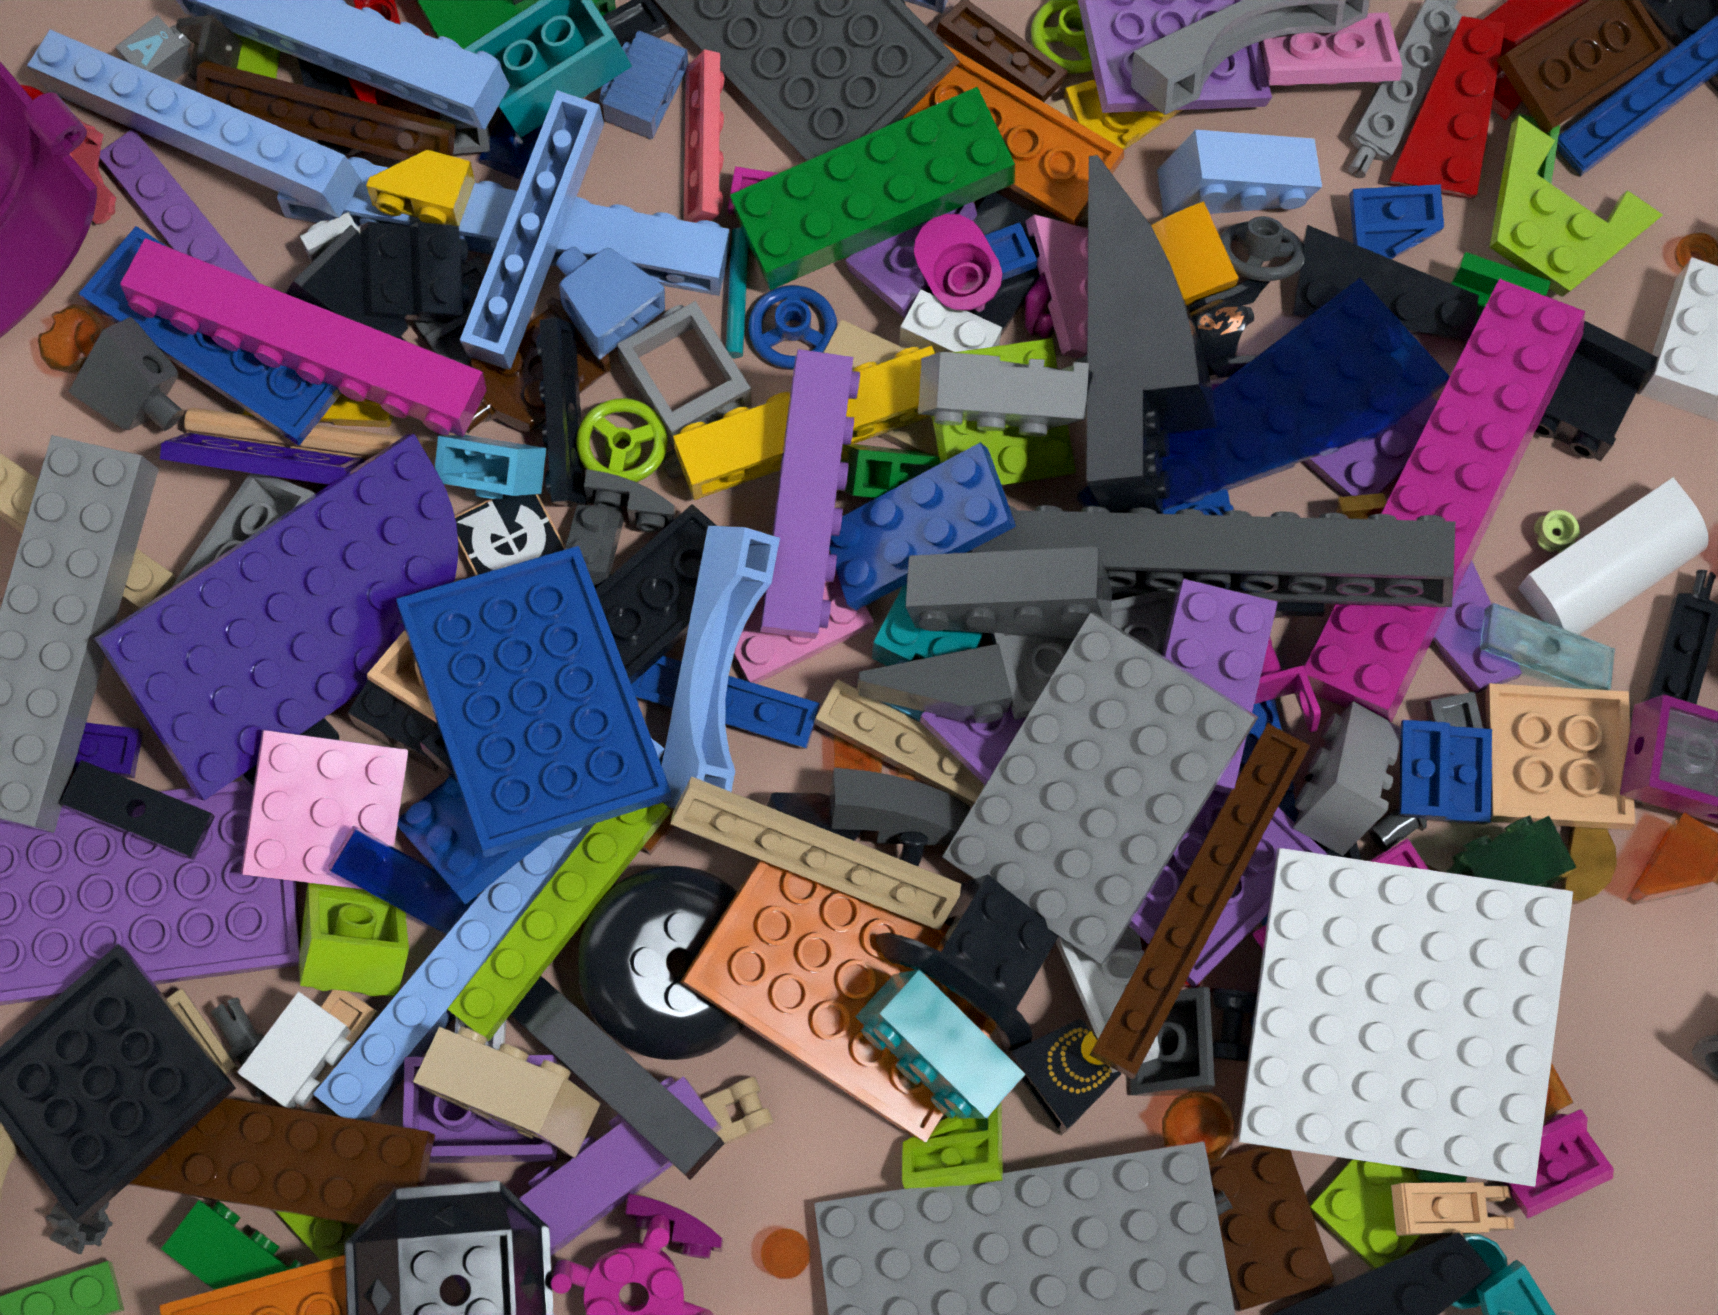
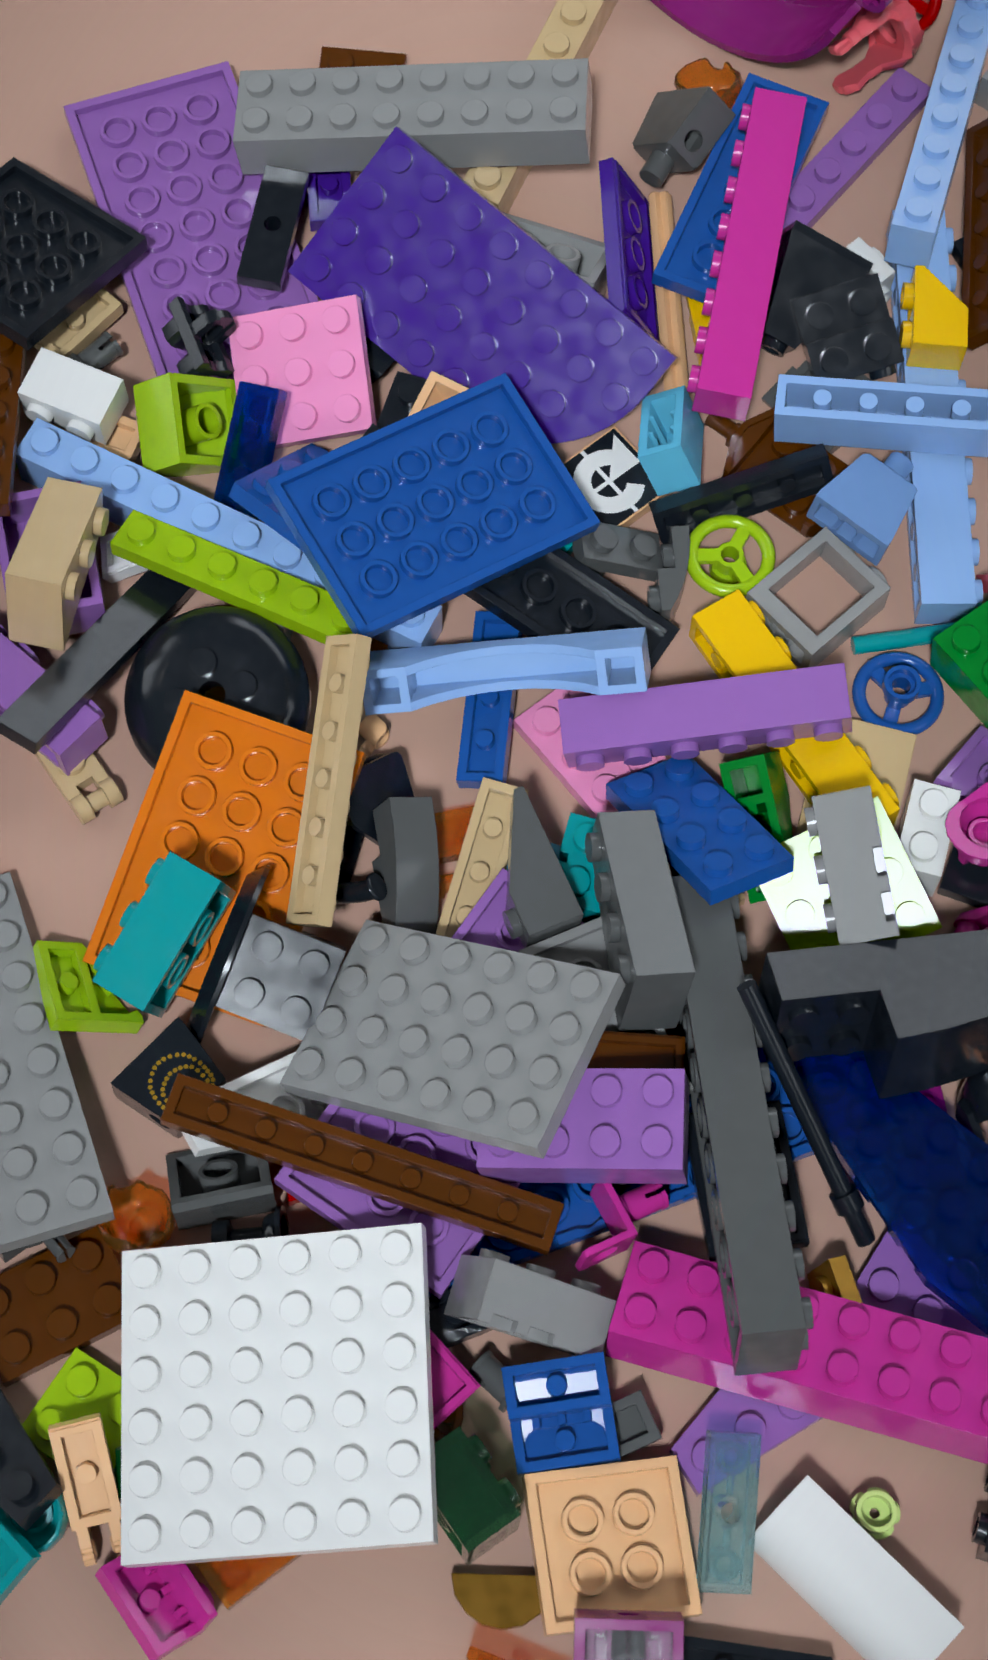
camera: 80 degrees right, 5 degrees down
(243, 909) = (198, 322): none -> black hips
(1147, 614) = (638, 1051): none -> reddish brown tile
(1279, 486) = (844, 1195): none -> black bar

